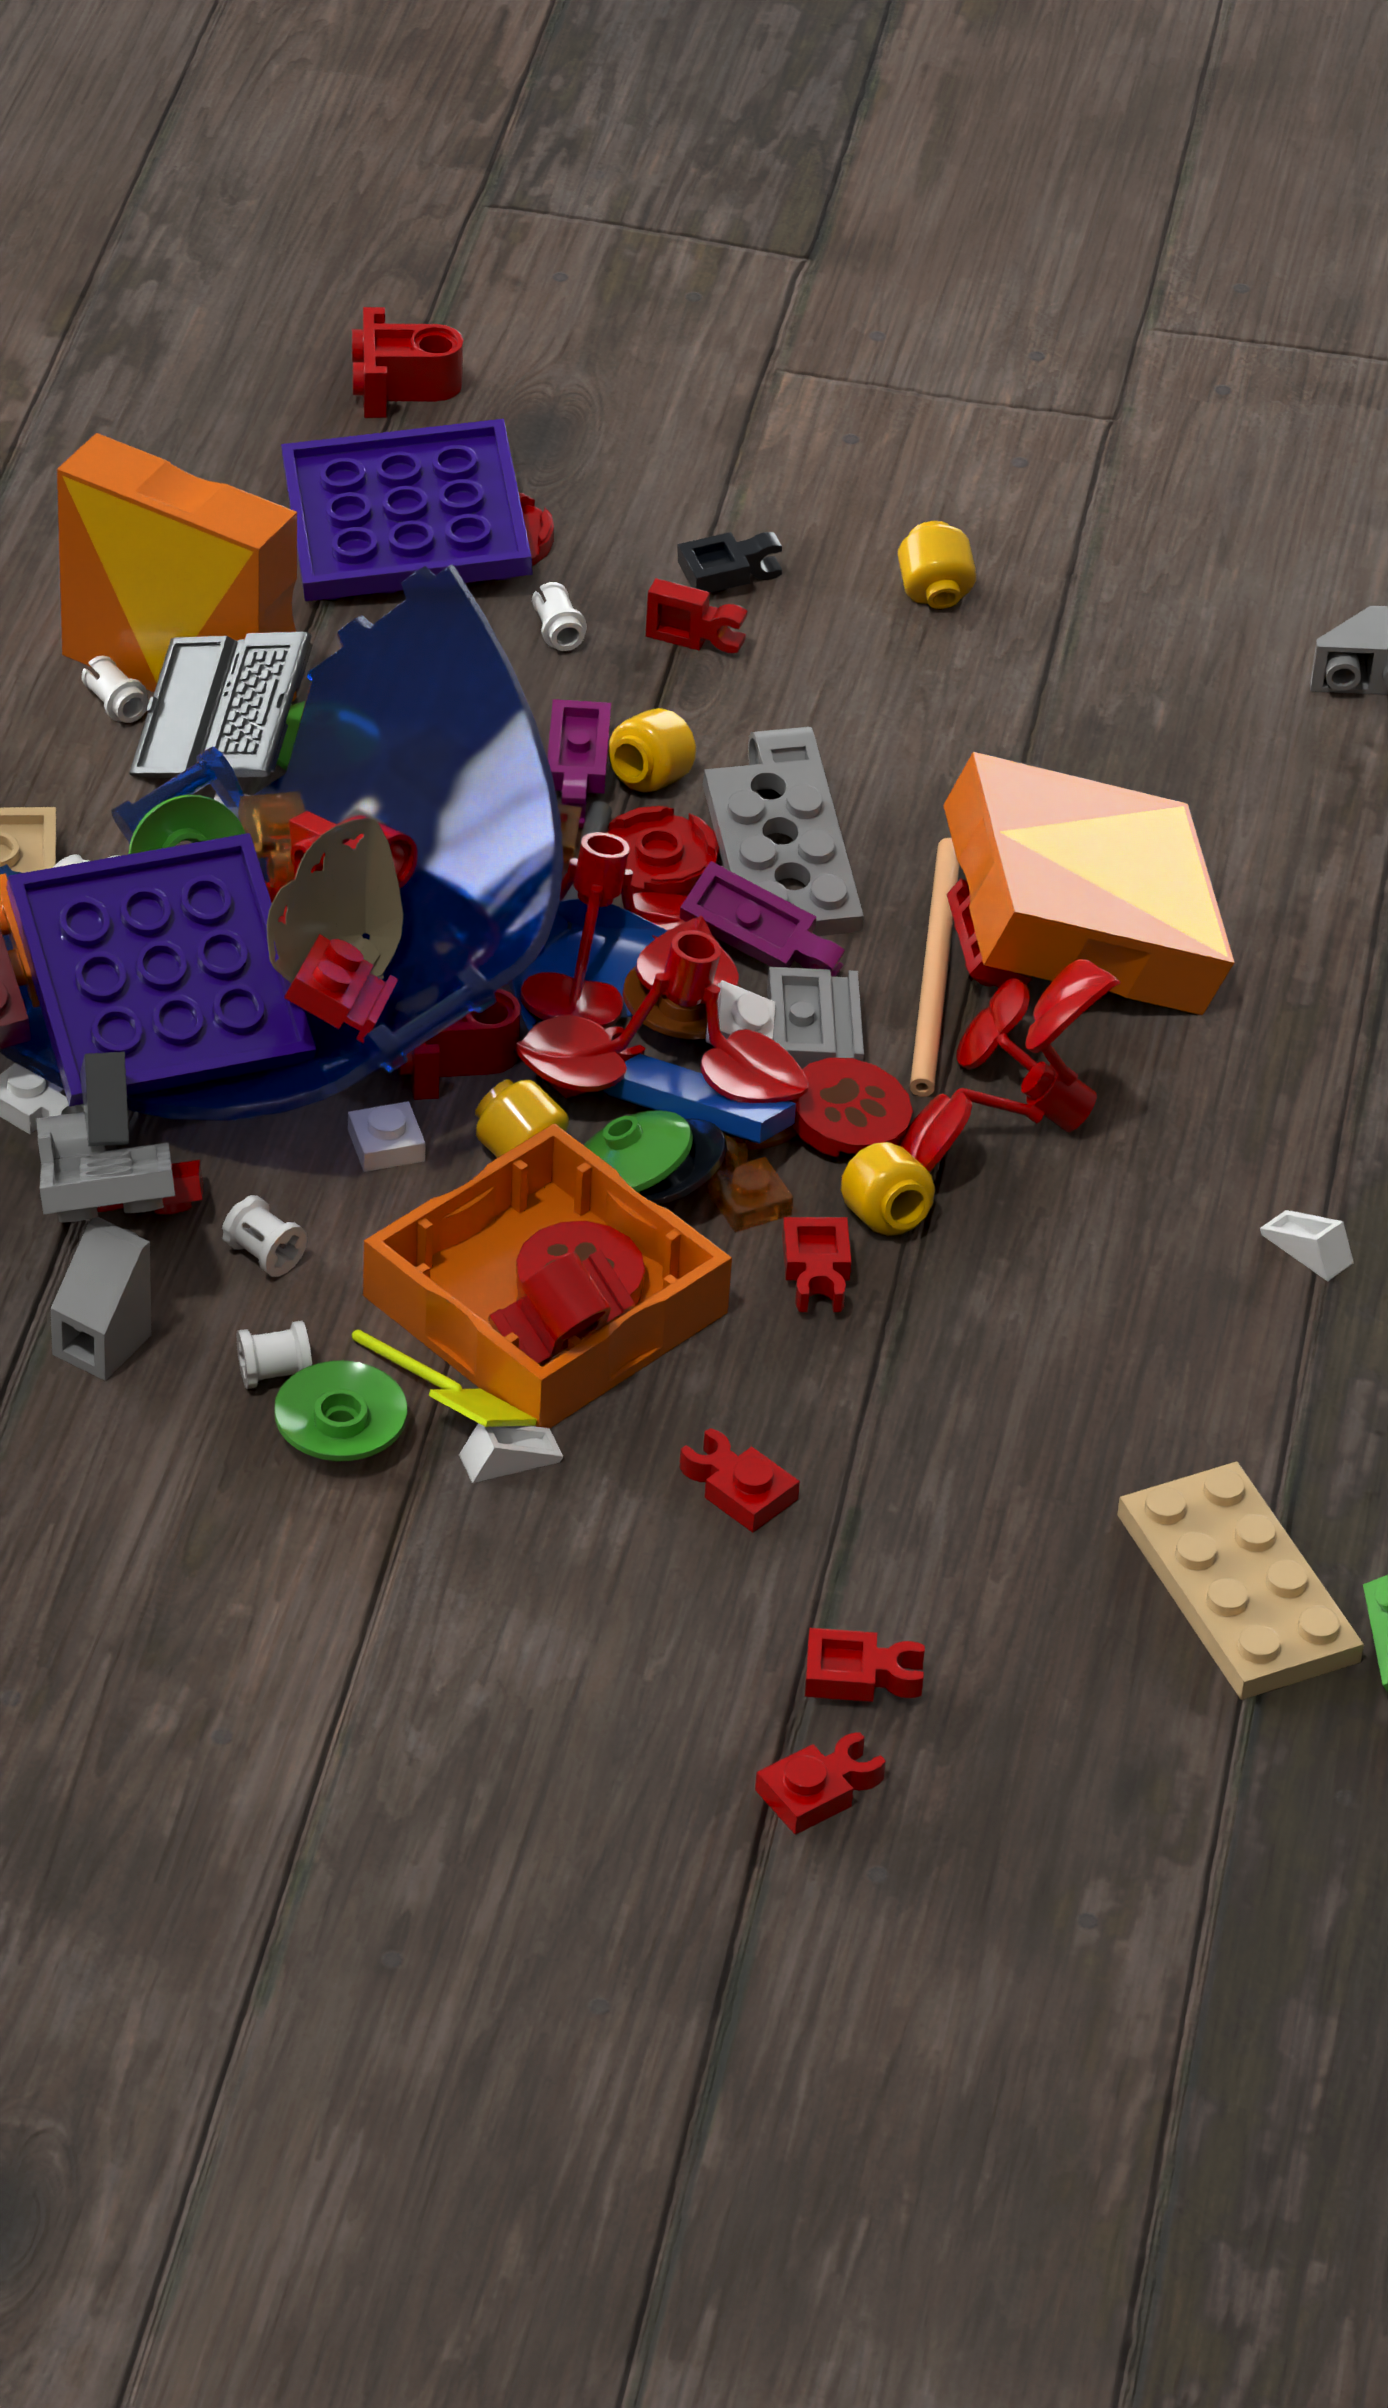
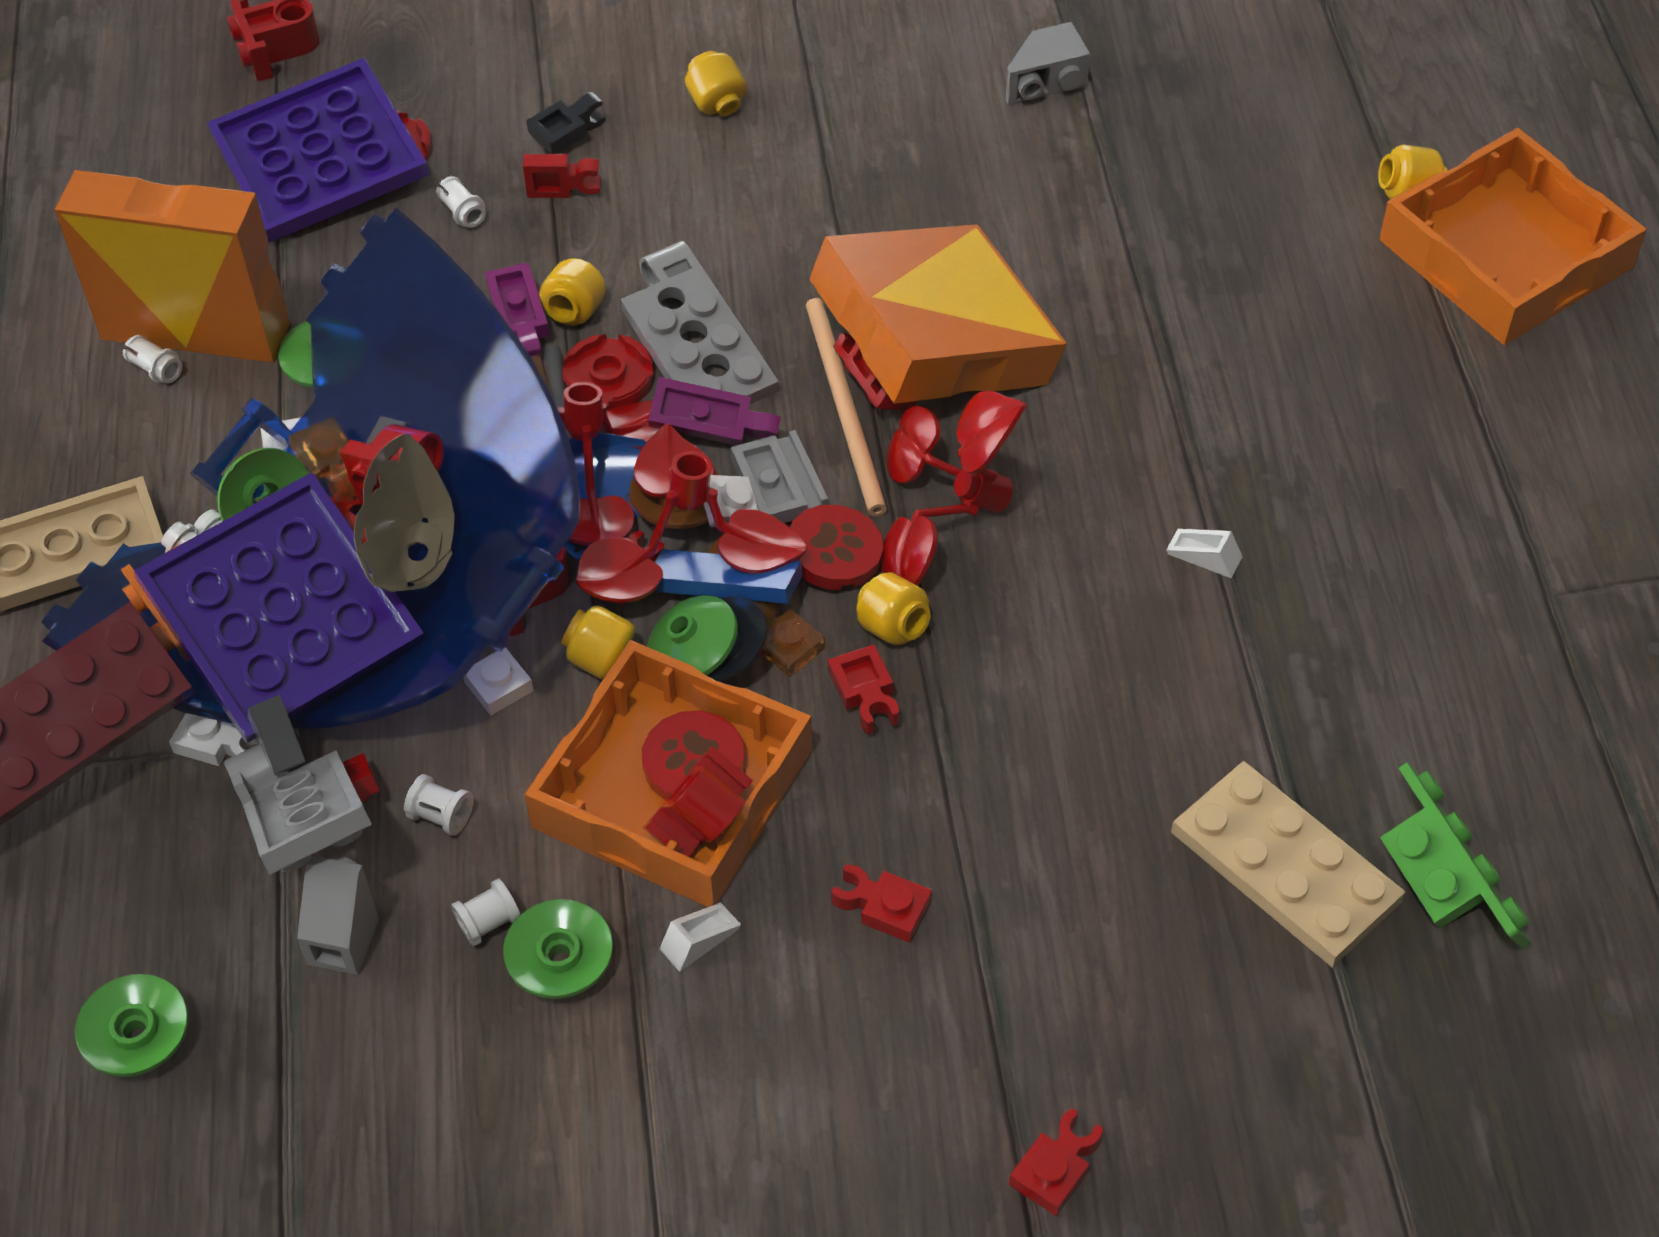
camera: 15 degrees left, 10 degrees up
(223, 698) = (243, 355): piece -> none
(339, 986) = (428, 582): red plate -> none
(472, 1403) = (655, 904): neon yellow piece -> none
(851, 1666) = (1040, 1049): red plate -> none

